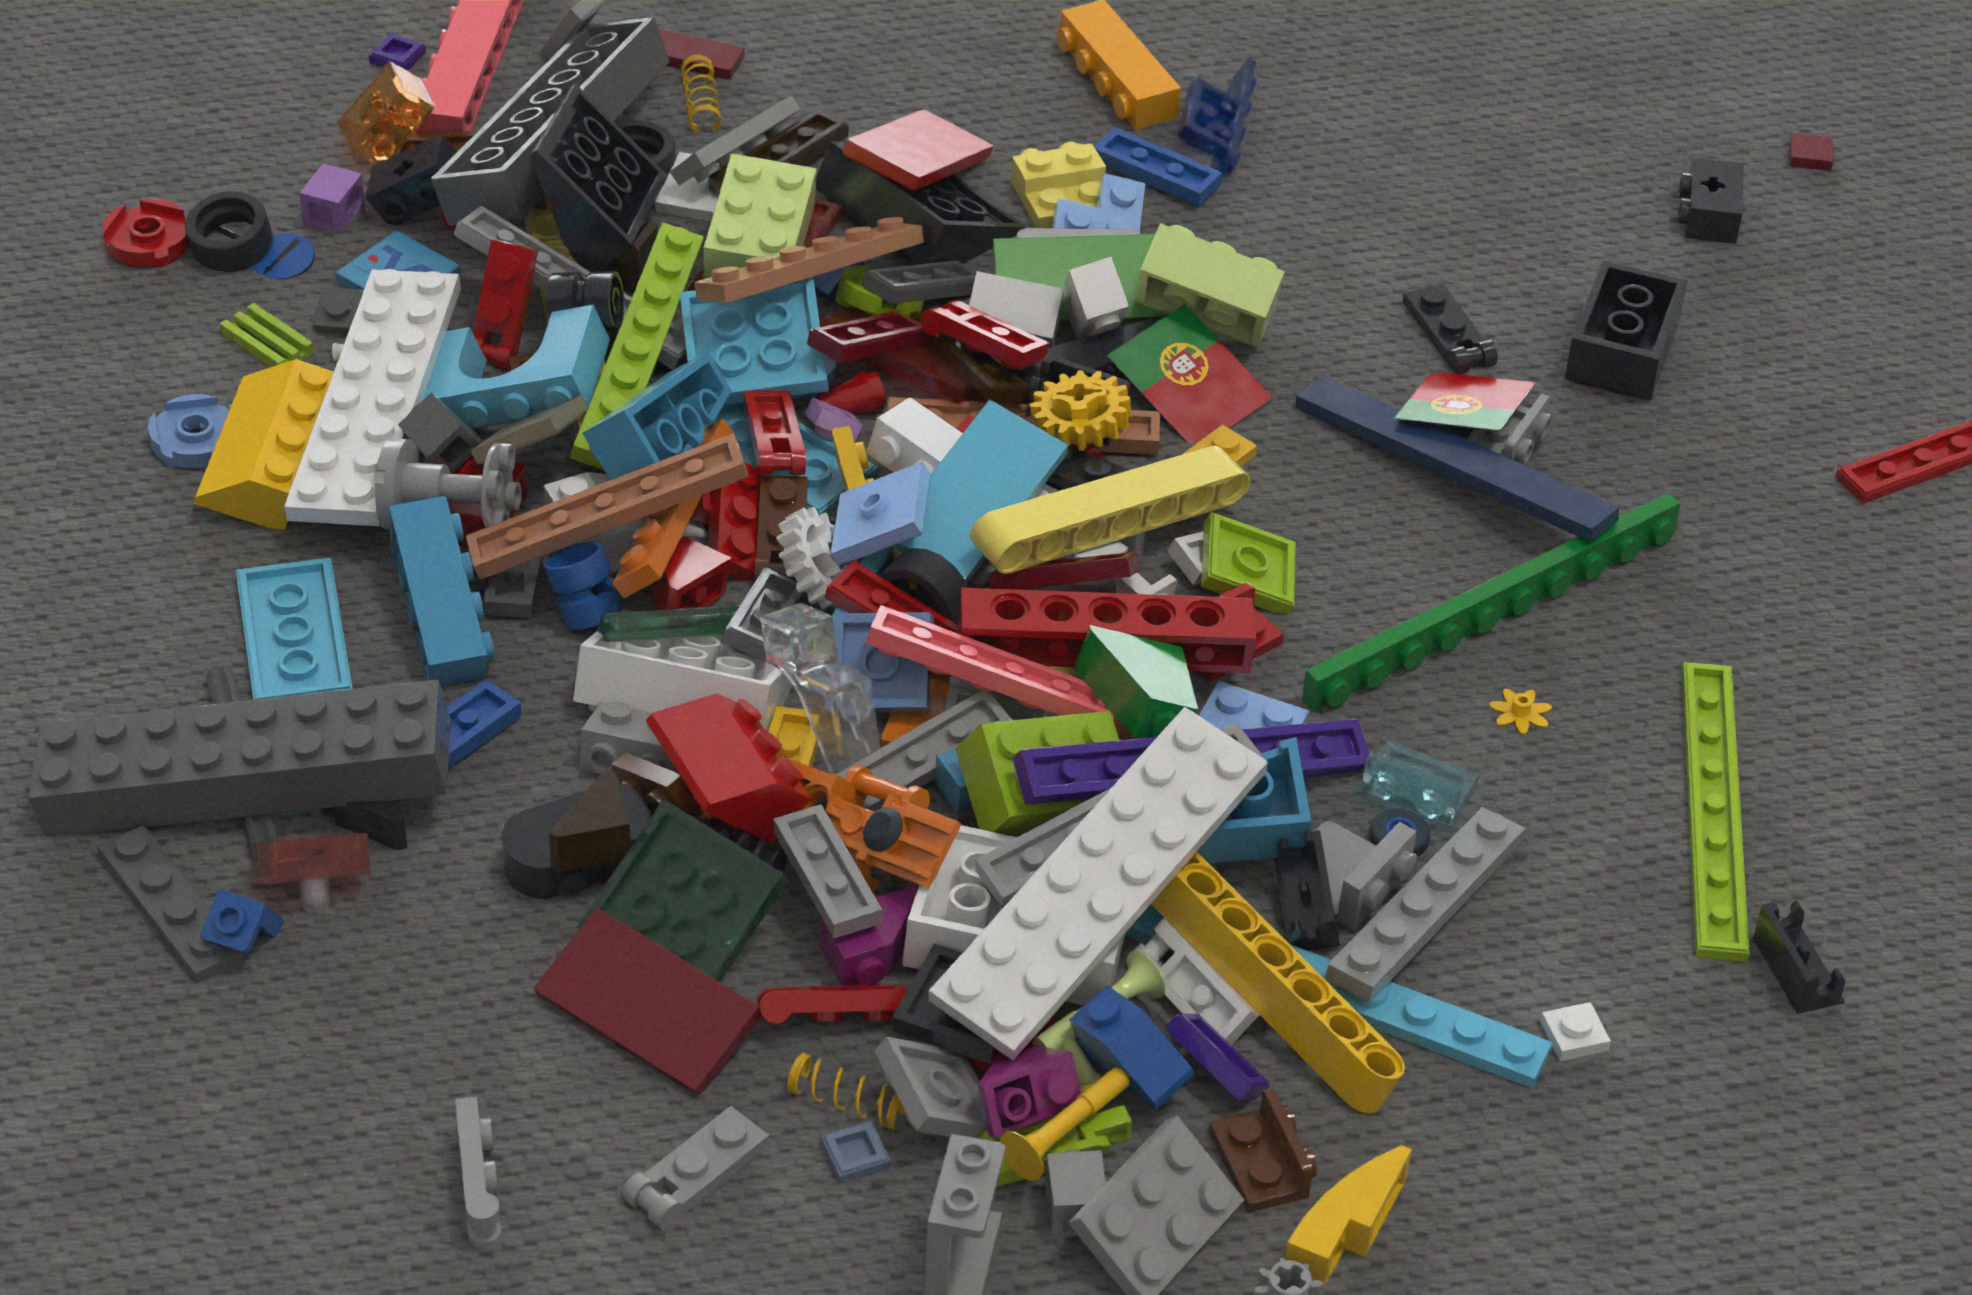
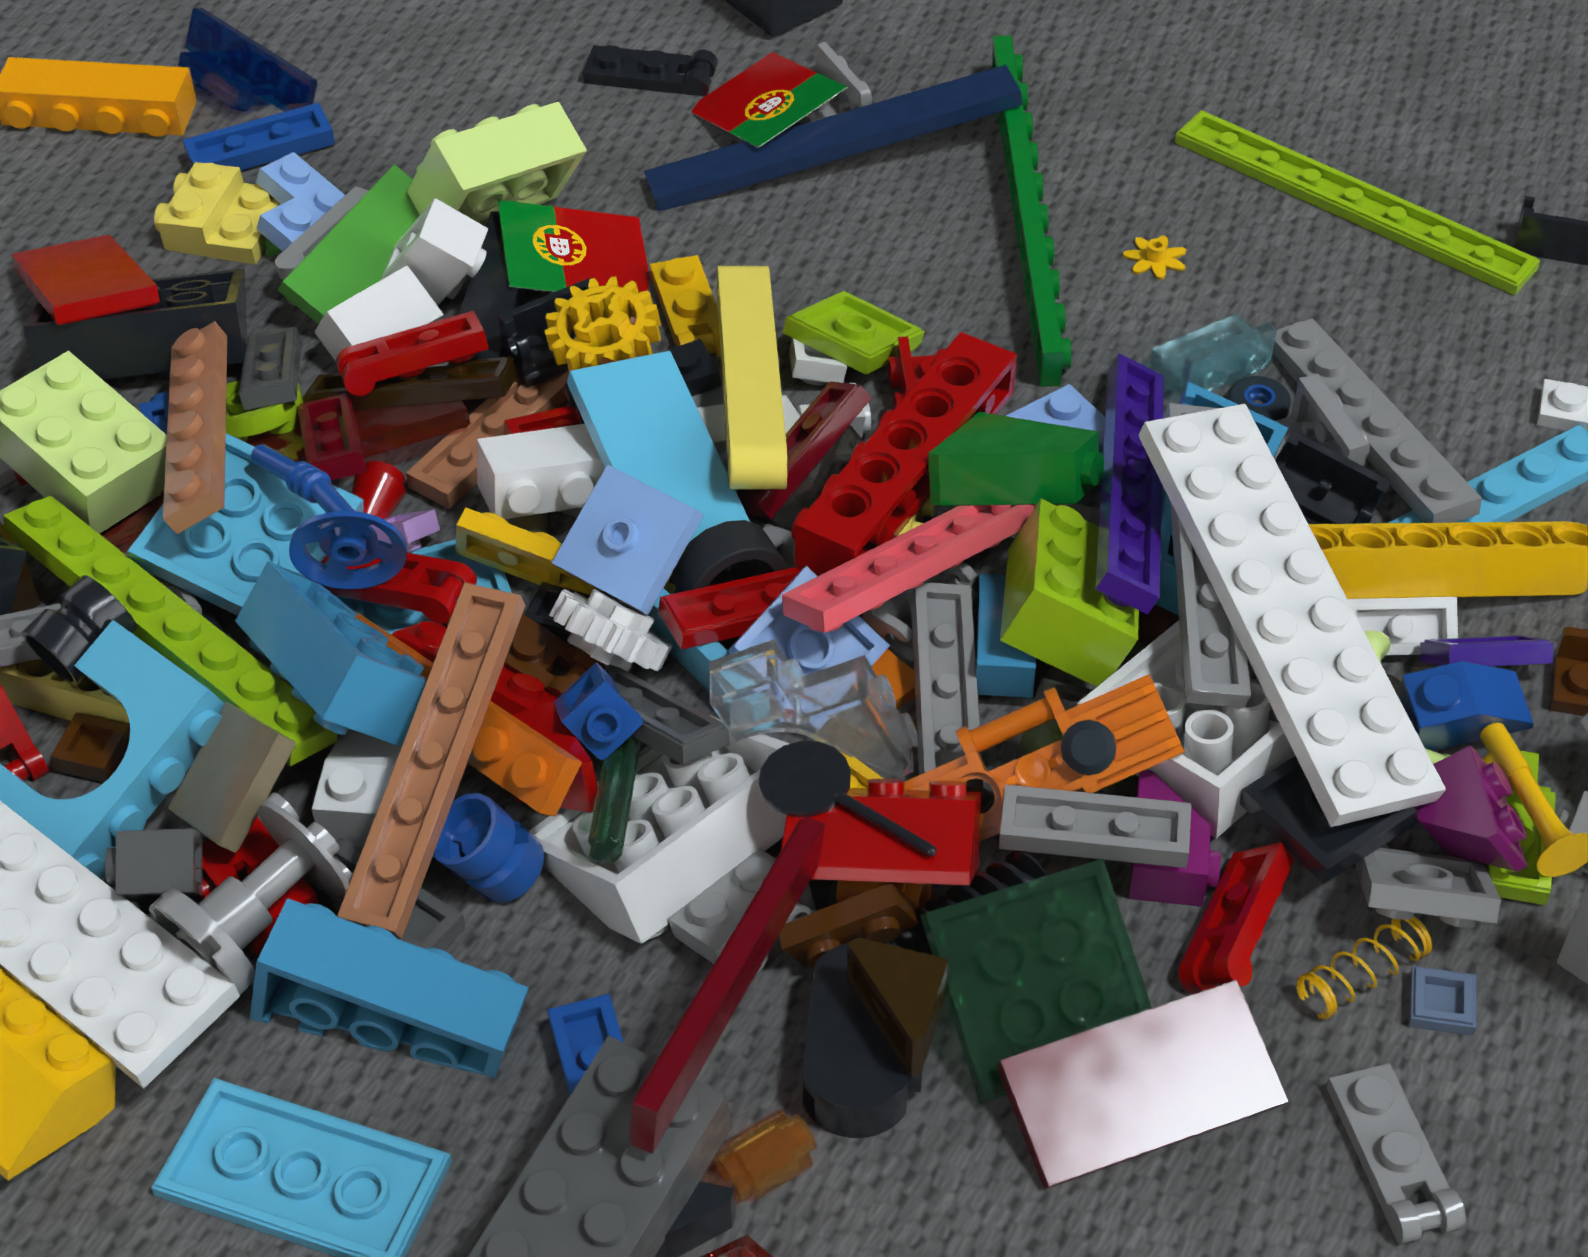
camera: 55 degrees left, 5 degrees up
(453, 835) = (766, 1155): none -> clear orange brick
(511, 707) = (724, 986): none -> dark red tile
(724, 578) = (597, 712): none -> blue bracket
(729, 696) = (813, 779): none -> black piece
(757, 373) = (341, 533): none -> blue dish

